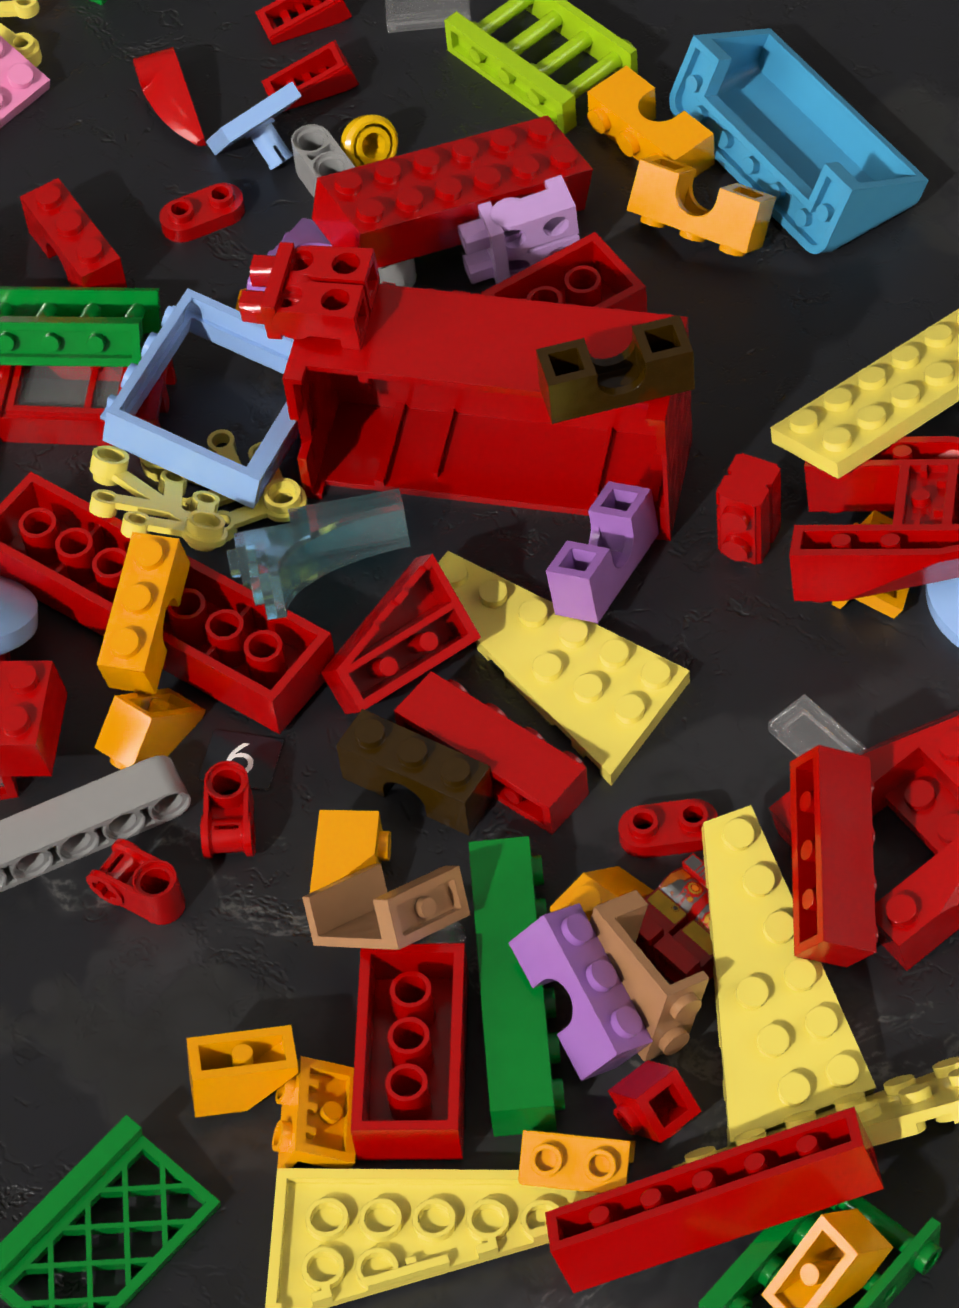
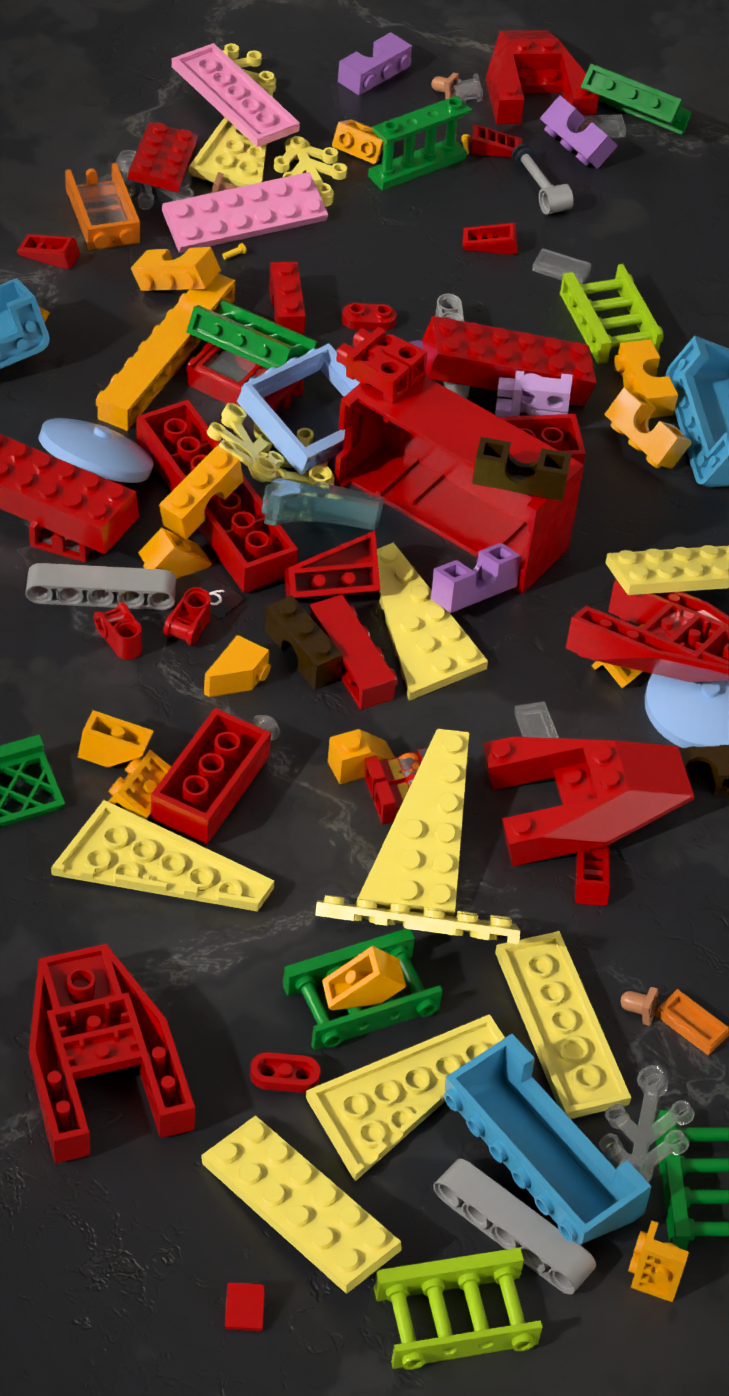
camera: 15 degrees right, 5 degrees down
(168, 93) = (388, 248): red piece -> none
(258, 126) = (425, 281): light blue tile -> none
(323, 73) = (473, 274): red slope -> none
(364, 915) = (239, 696): medium nougat panel -> none
(369, 140) = (483, 314): yellow brick -> none
(513, 1012) = (288, 772): green brick -> none
(574, 1161) = (265, 869): light orange bracket -> none
(604, 1019) = (322, 808): medium lavender arch -> none
(653, 1102) = (325, 861): red brick -> none
(664, 1008) = (353, 814): medium nougat panel -> none
(668, 830) = (417, 730): red plate -> none
(713, 1200) = (323, 918): red brick -> none
(748, 509) = (570, 590): red brick -> none
(833, 857) = (498, 779): red brick -> none

